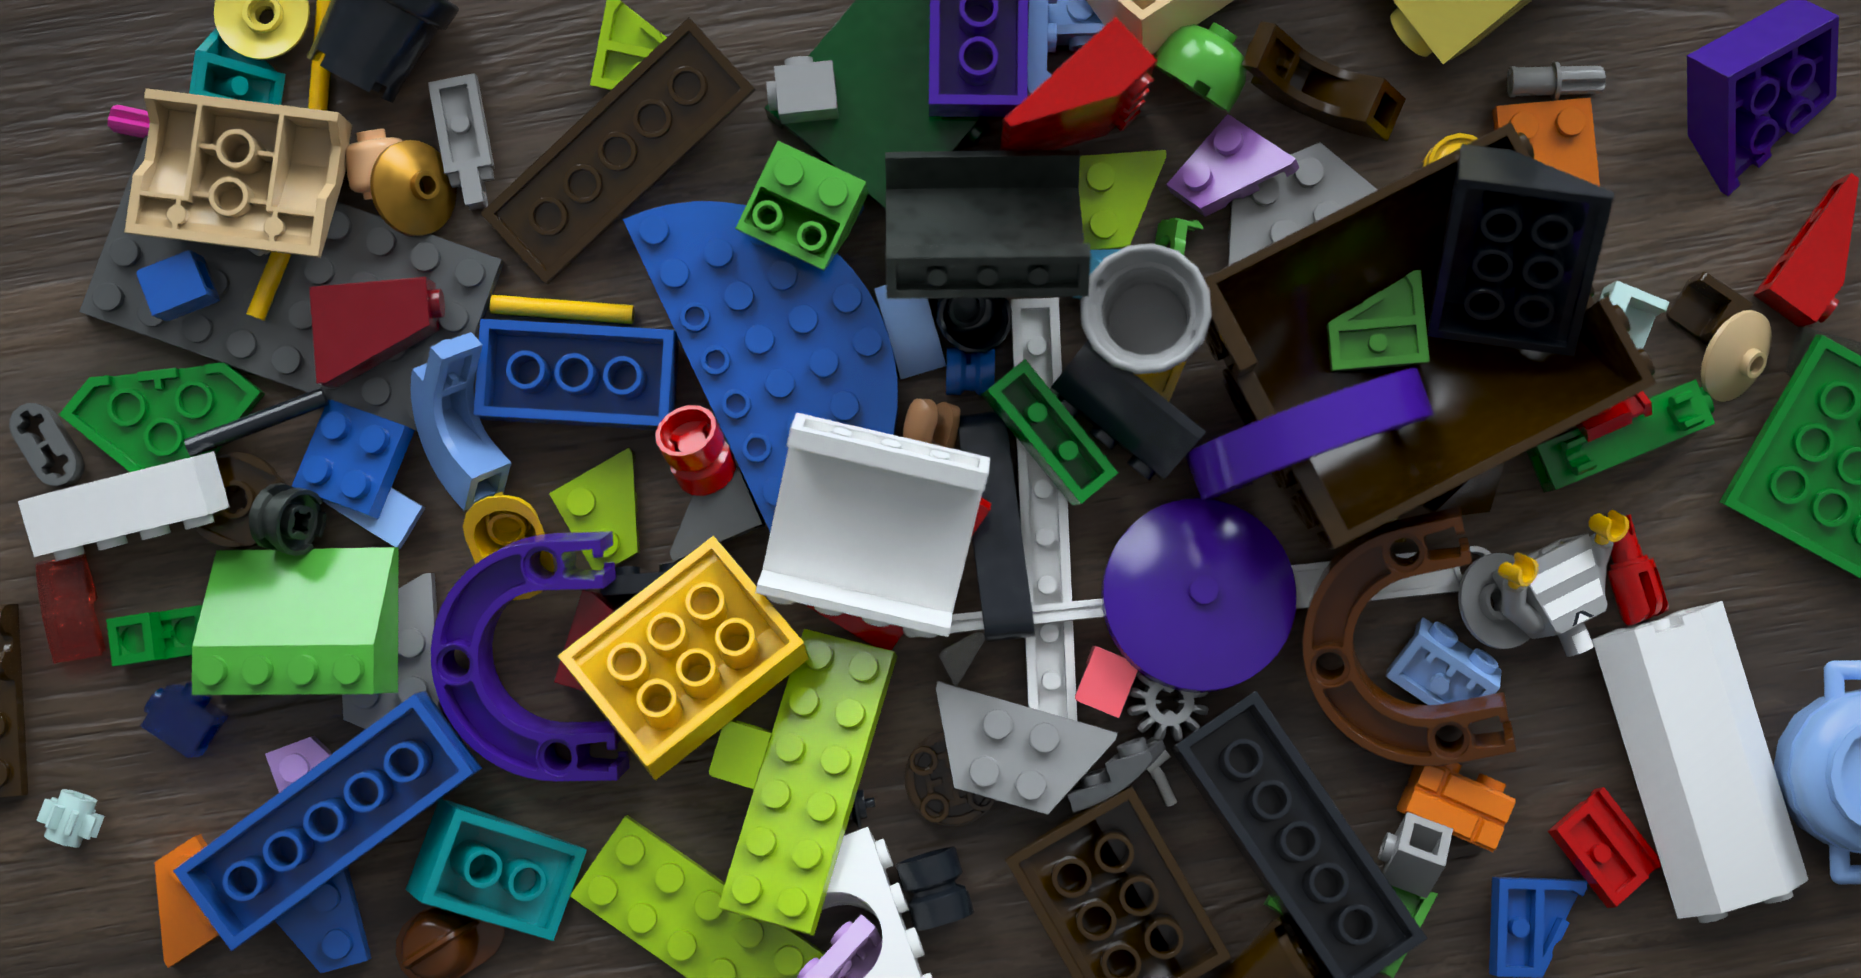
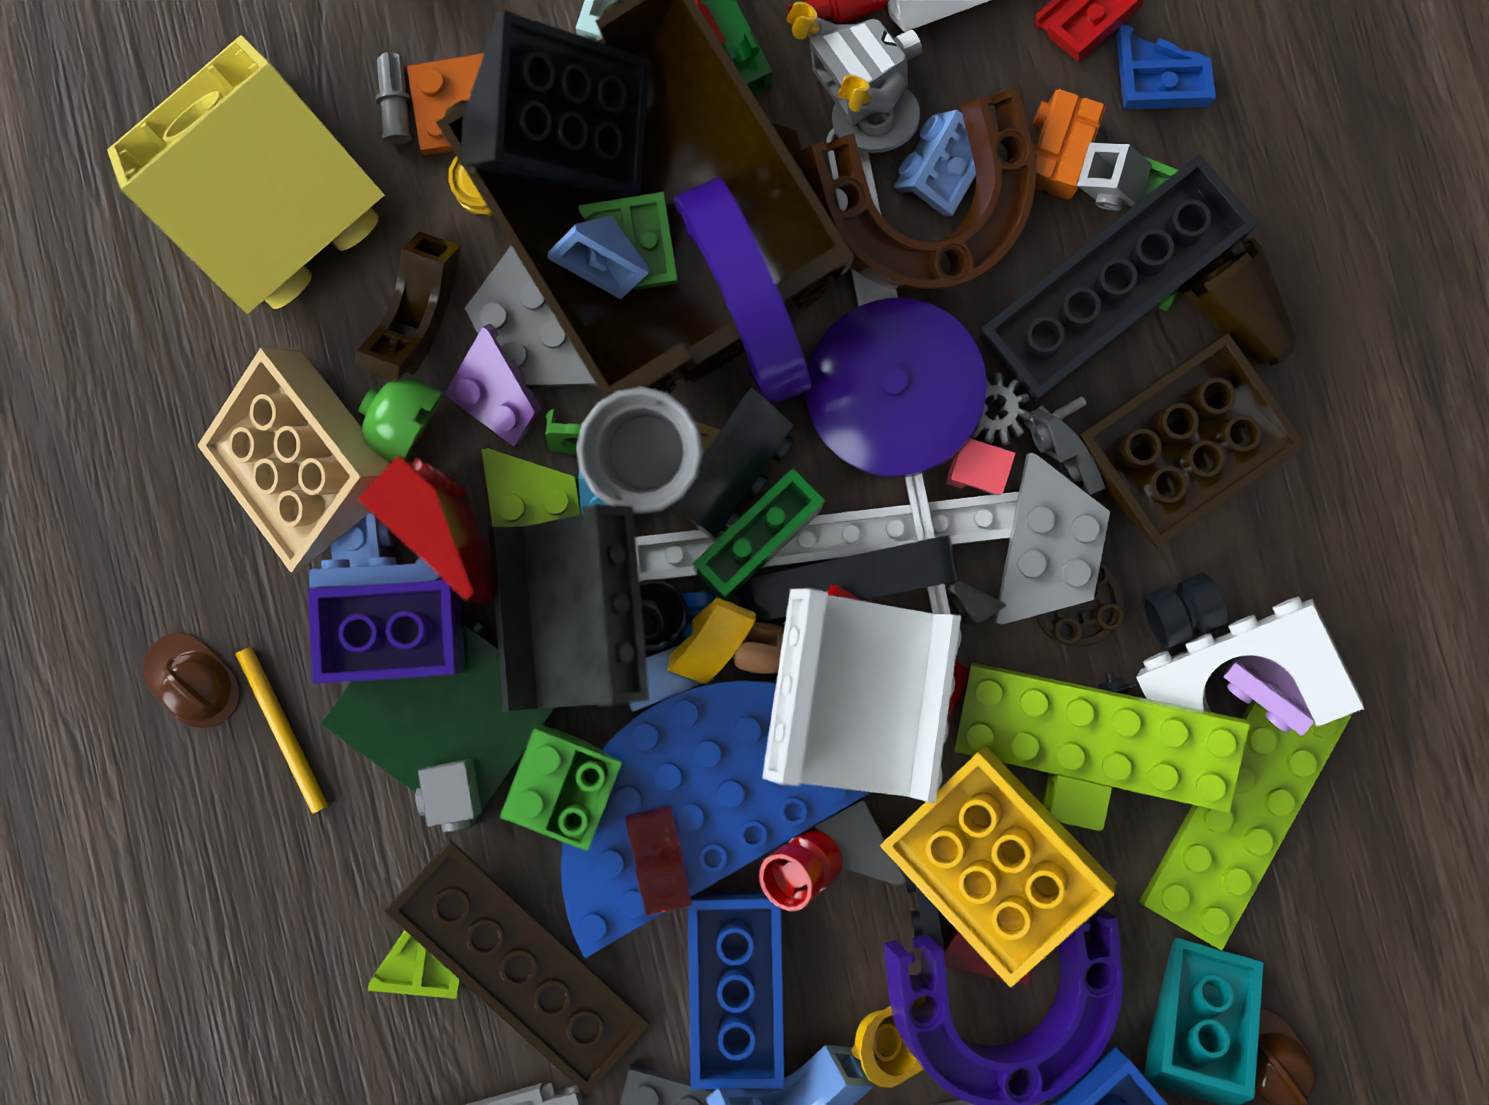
camera: 95 degrees left, 0 degrees up
(562, 309) = (672, 1005): yellow bar -> none
(603, 502) = (854, 949): lime wing -> none
(718, 302) = (658, 860): none -> clear red slope
(941, 377) = (713, 641): none -> yellow slope
(1361, 289) = (601, 255): none -> light blue slope

